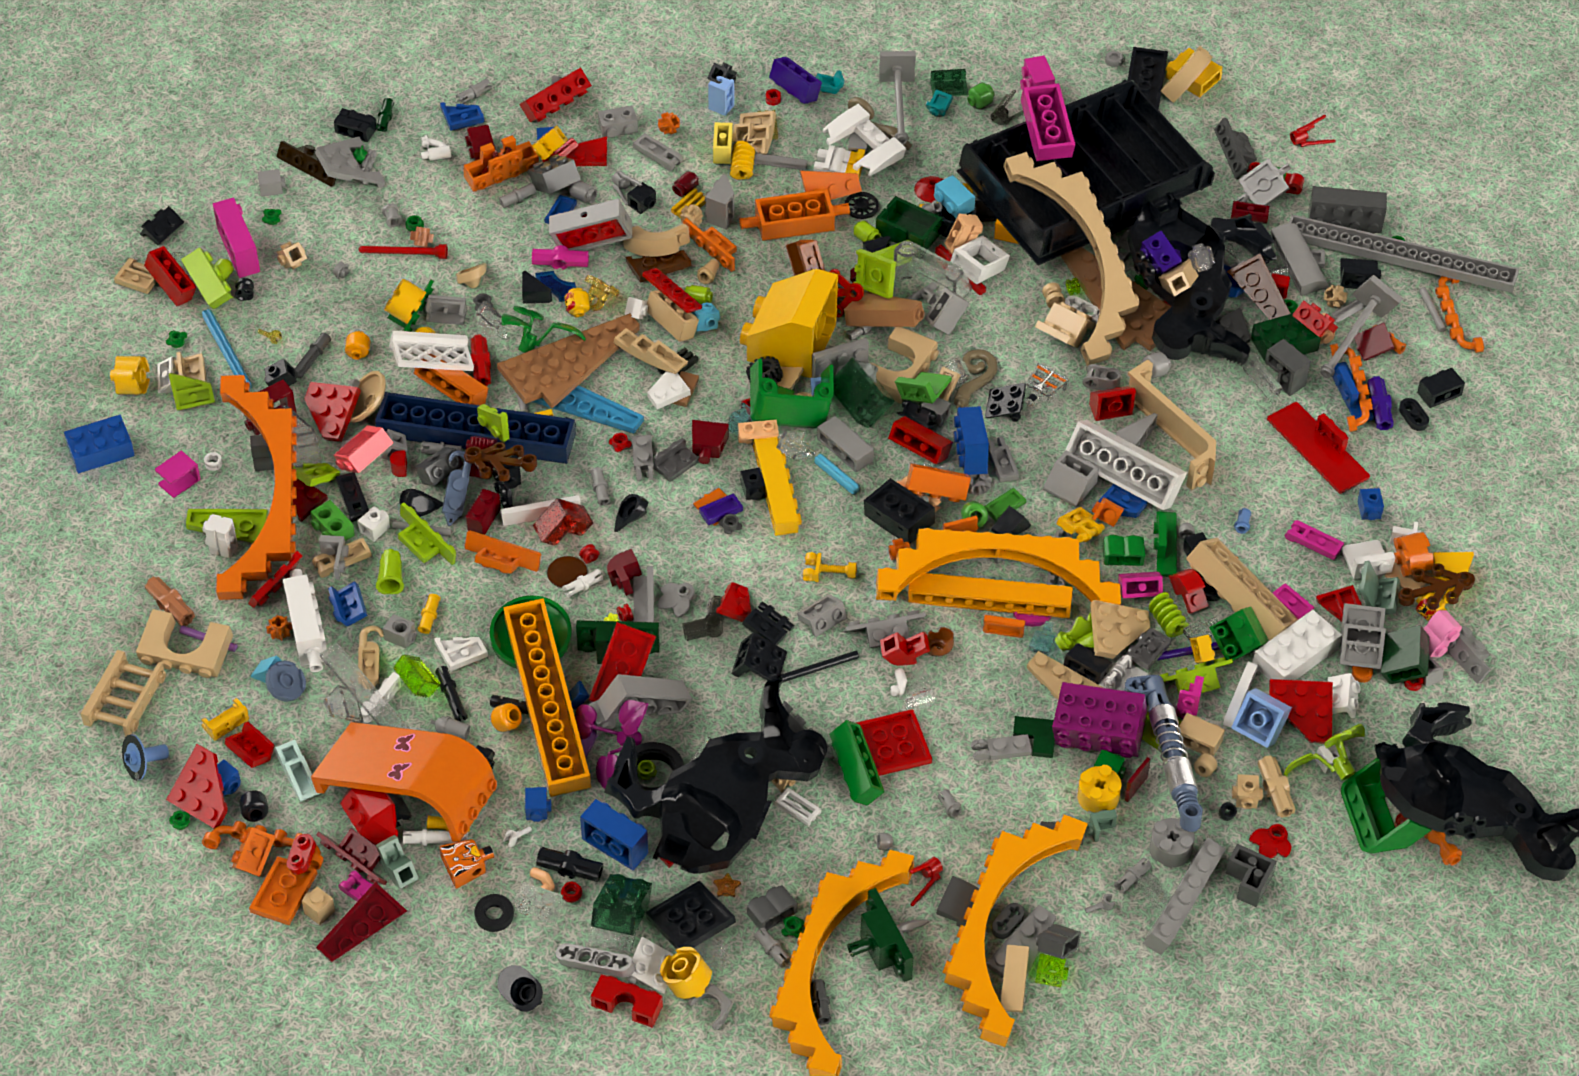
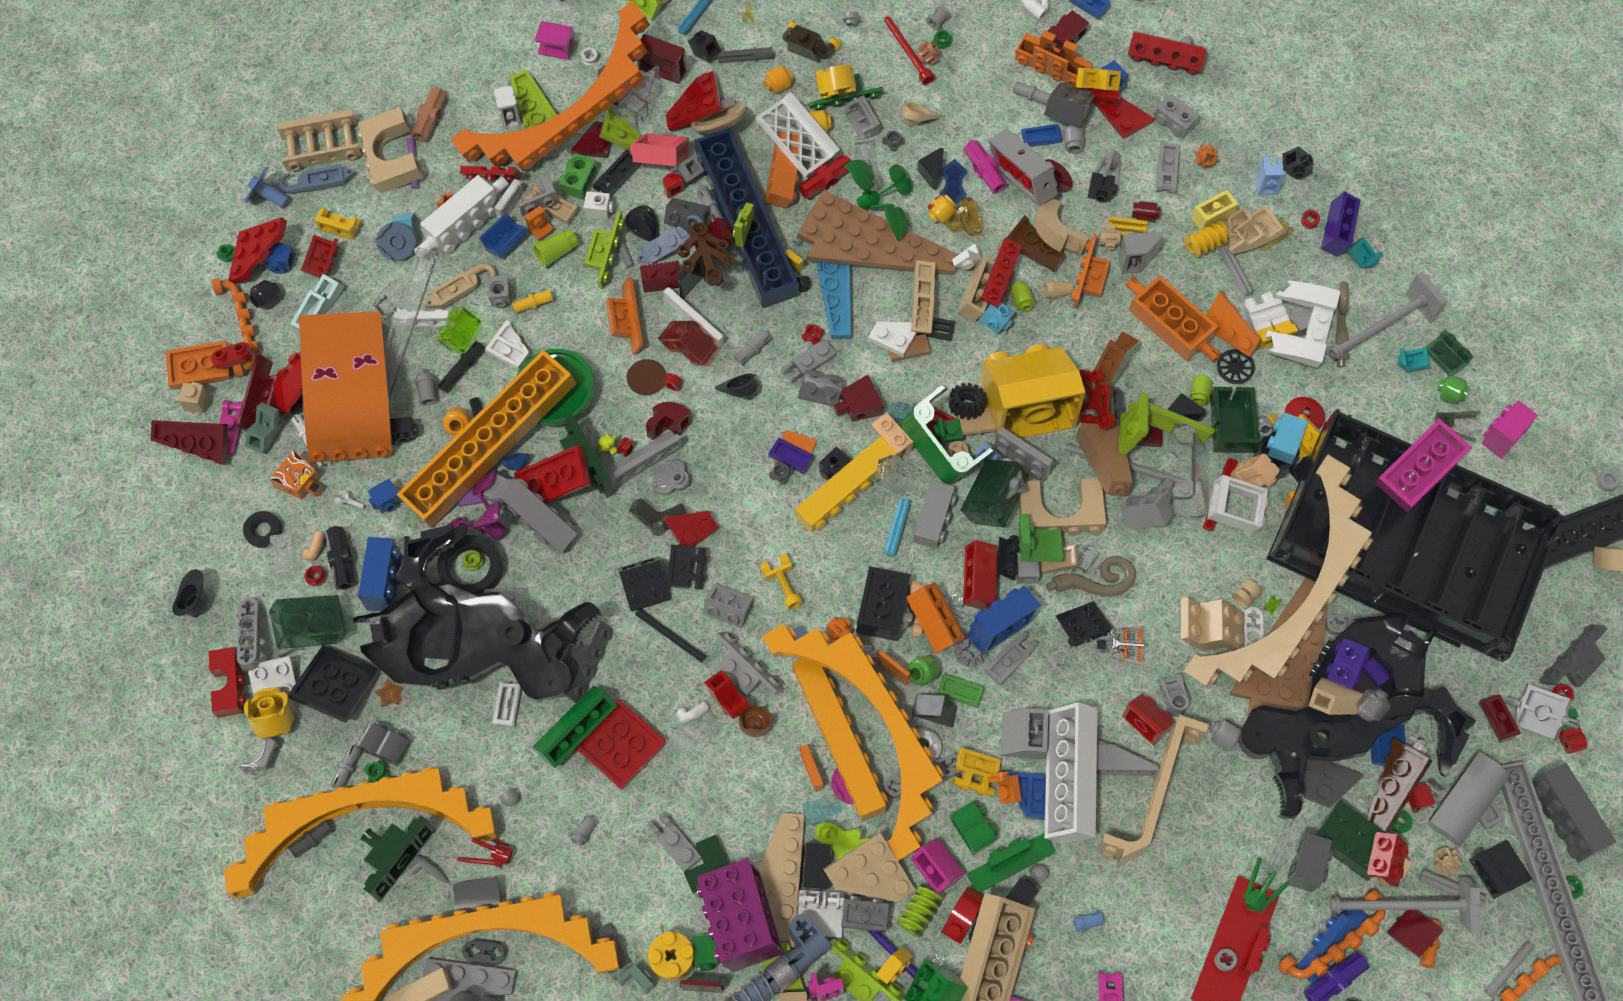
camera: 60 degrees right, 15 degrees up
(164, 713) = (318, 179): none -> sand blue plate
(253, 851) = (217, 321): orange bracket -> none
(319, 591) = (509, 198): none -> white tile
(339, 307) = (808, 43): none -> dark brown torso
(356, 573) = (538, 223): none -> orange bracket
(582, 583) = (638, 395): white pin -> none
(1293, 411) = (1255, 899): none -> green plant
(1326, 449) = (1229, 954): none -> light grey bush

